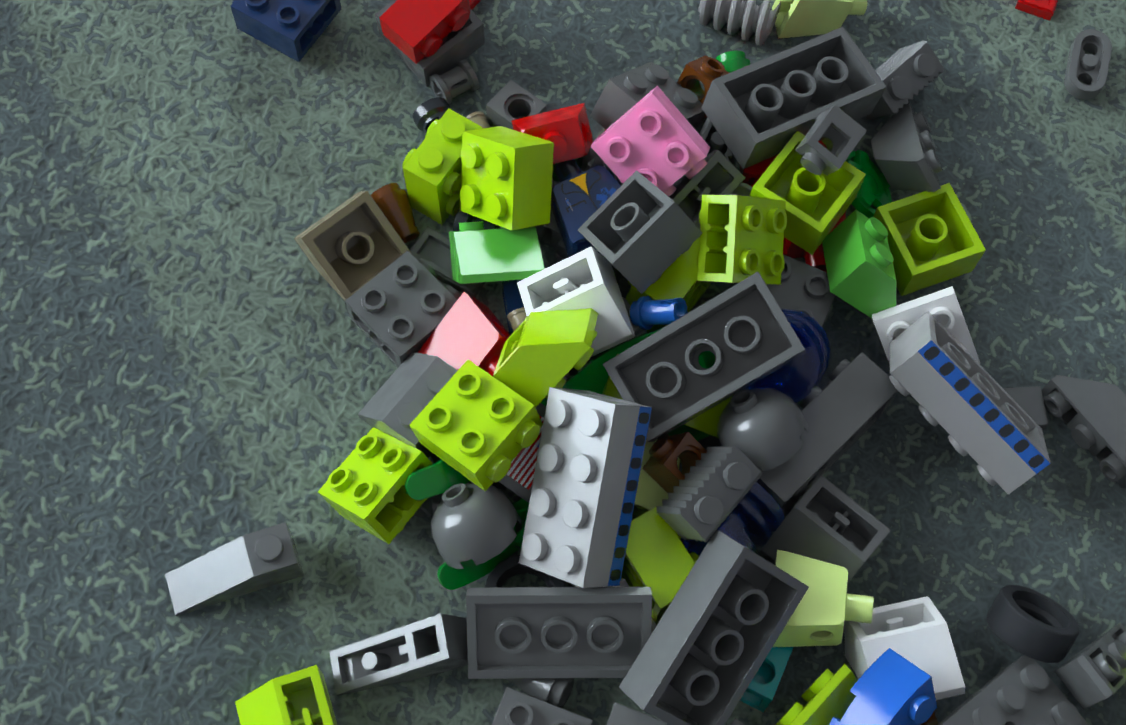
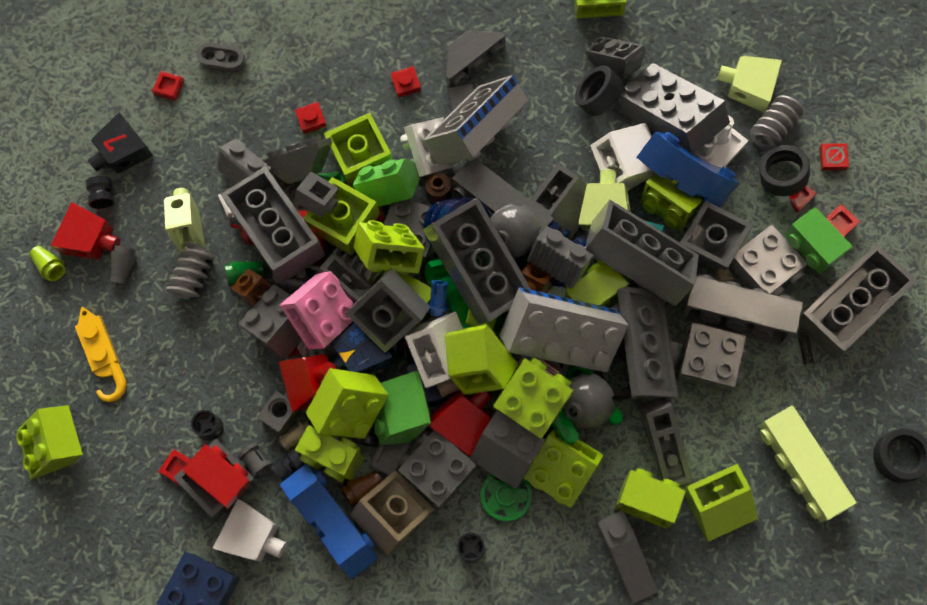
camera: 85 degrees left, 5 degrees up
(281, 340) = (467, 544): none -> black wheel
(310, 607) = (650, 498): none -> lime brick
(346, 409) = (505, 498): none -> green wheel
(353, 70) = (249, 534): none -> white torso
(373, 158) = (337, 532): none -> blue brick
(511, 26) = (203, 421): none -> black wheel
(853, 341) = (438, 187): none -> reddish brown brick
(986, 183) = (310, 117): none -> red plate
(1051, 324) = (405, 81): none -> red plate

